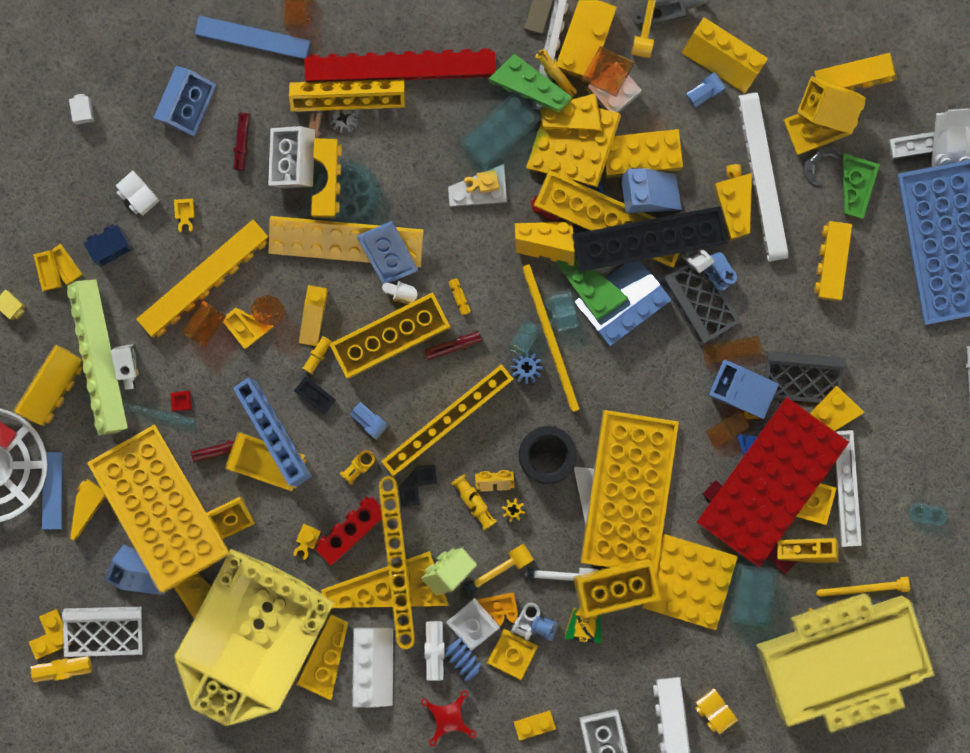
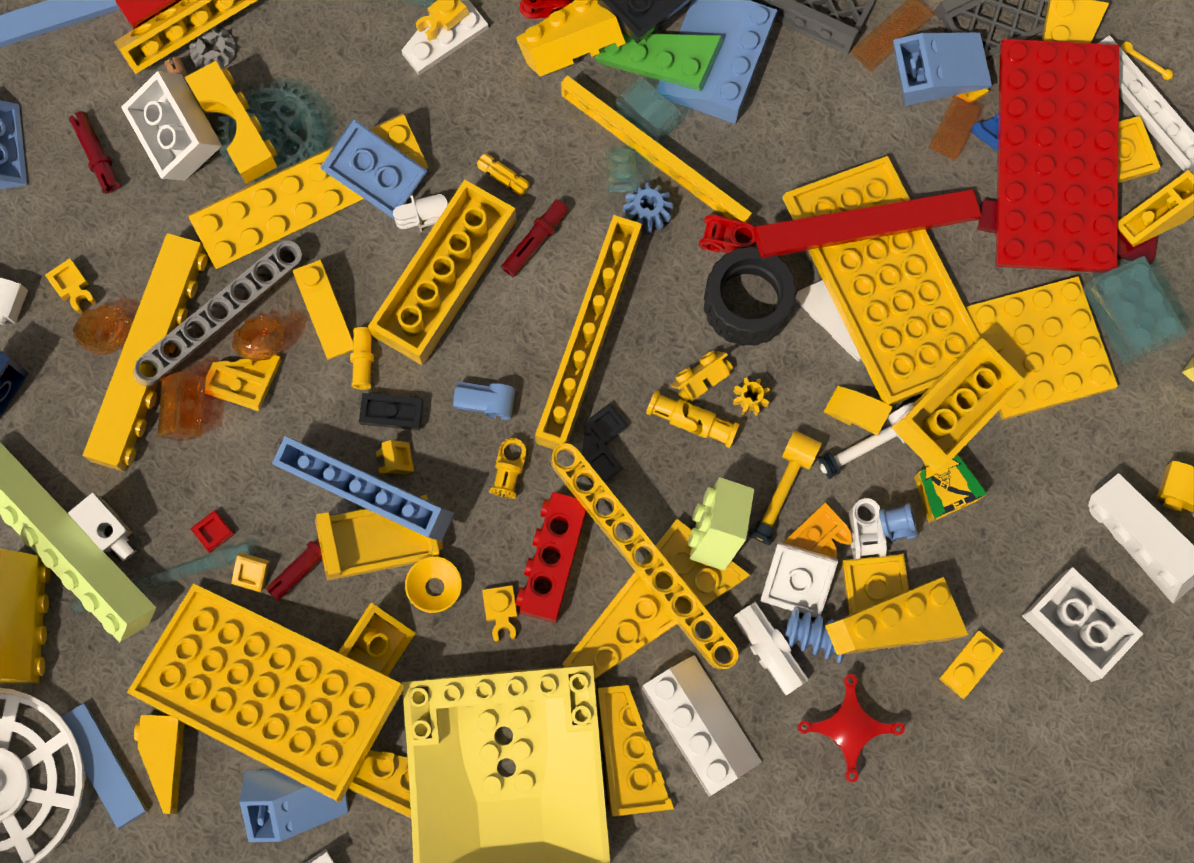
camera: 30 degrees left, 10 degrees down
(187, 252) = (102, 329): none -> clear orange hair
(188, 436) = (250, 572): none -> yellow tile
(263, 286) = (211, 325): none -> light grey beam
(269, 501) = (428, 569): none -> yellow piece
(302, 423) = (396, 457): none -> yellow tile
(513, 681) = (907, 619): none -> yellow wedge
(558, 410) = (725, 235): none -> red piece
(565, 553) = (858, 409): none -> yellow slope
(638, 456) = (866, 223): none -> red tile
(861, 442) = (1127, 47): none -> yellow hinge

